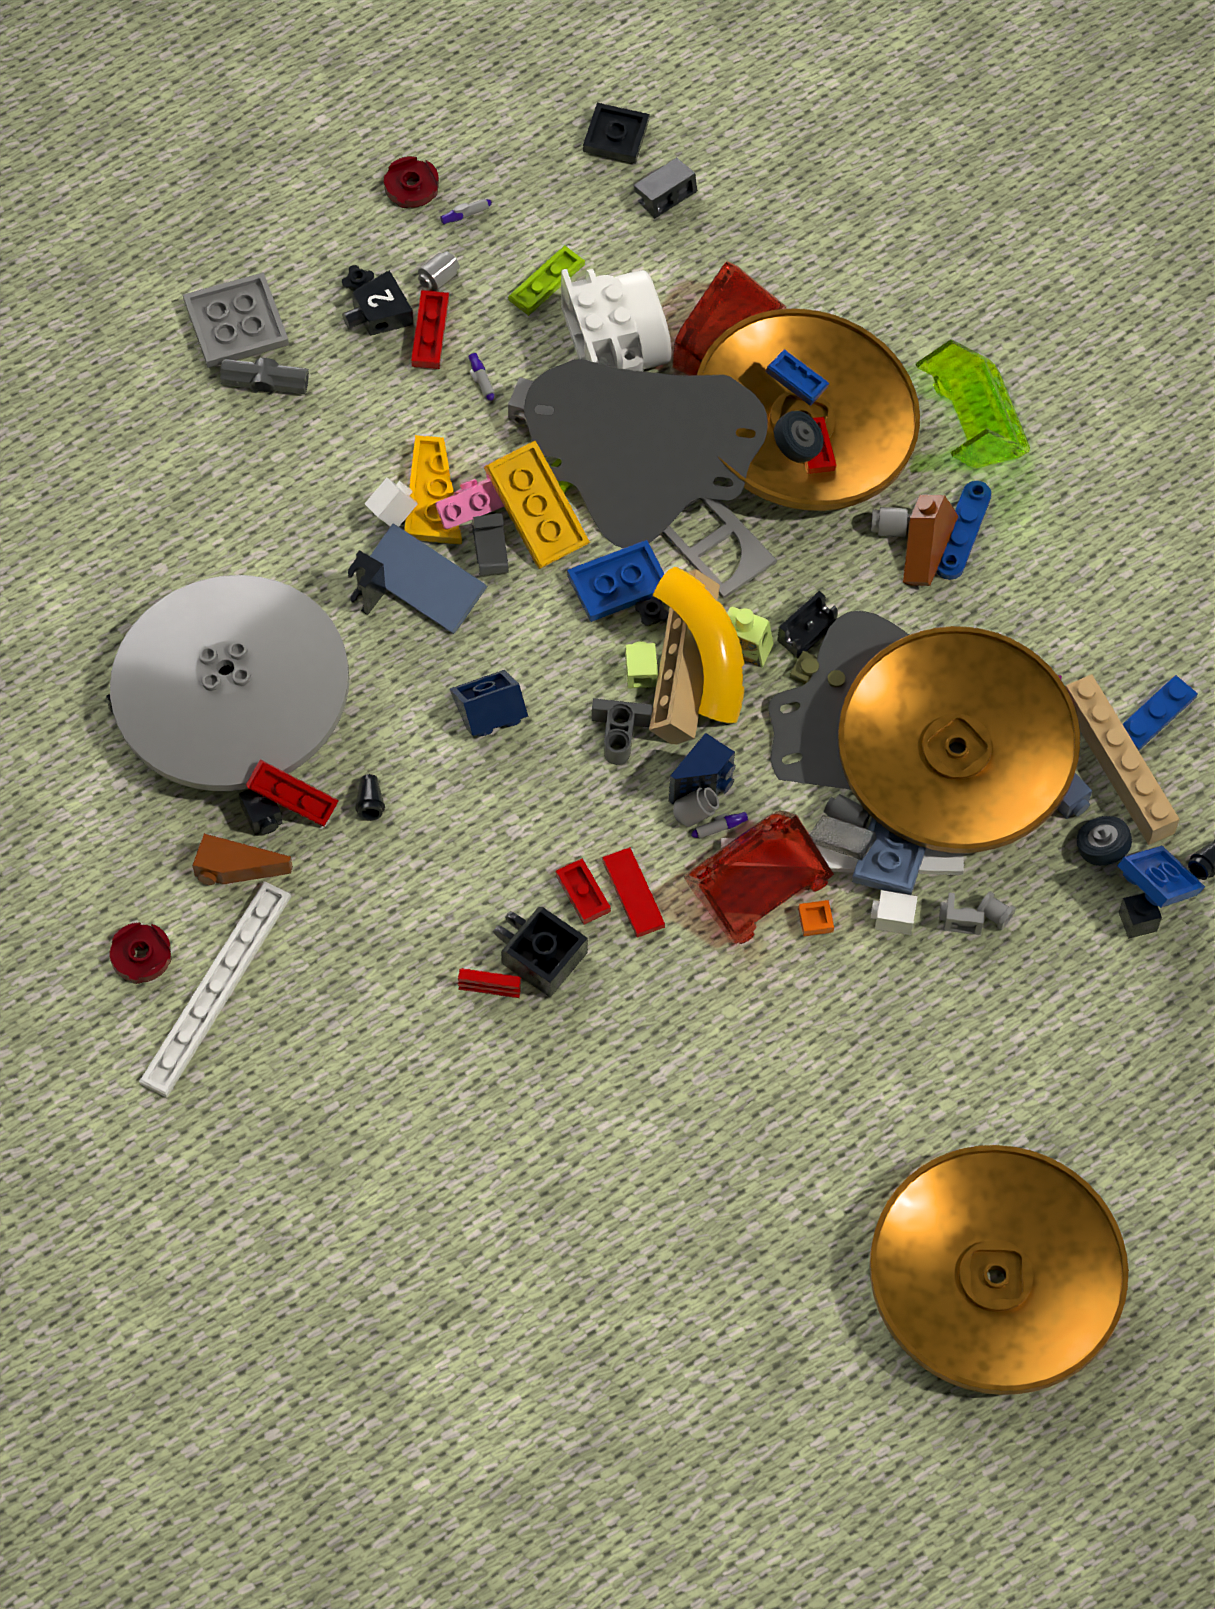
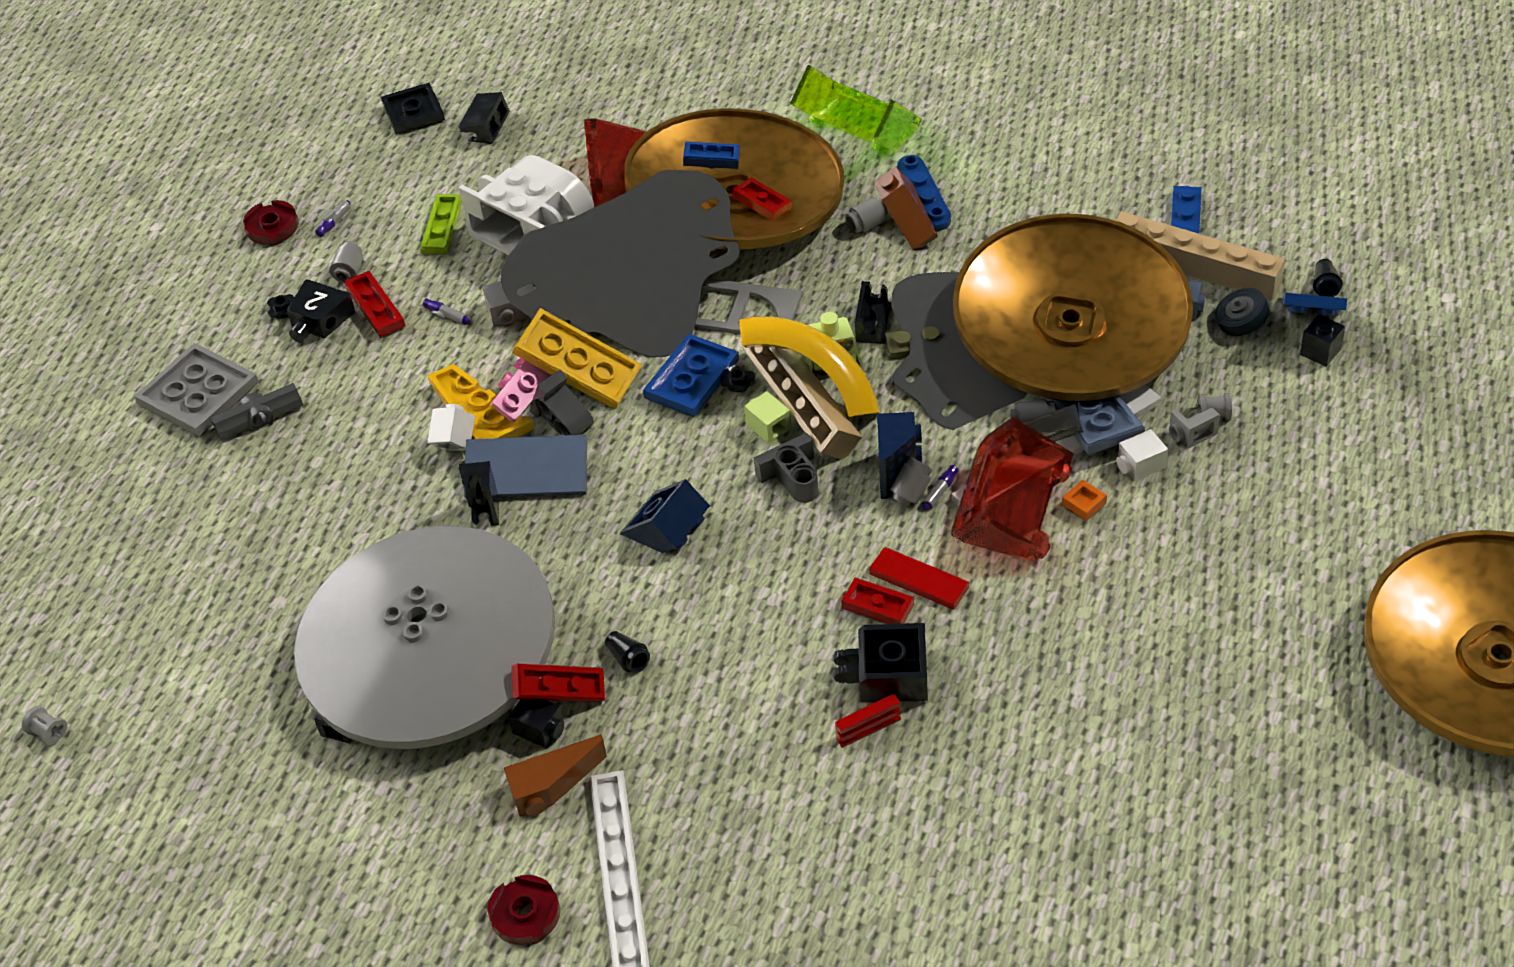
camera: 30 degrees left, 15 degrees down
(798, 436) = (751, 186): black wheel -> none

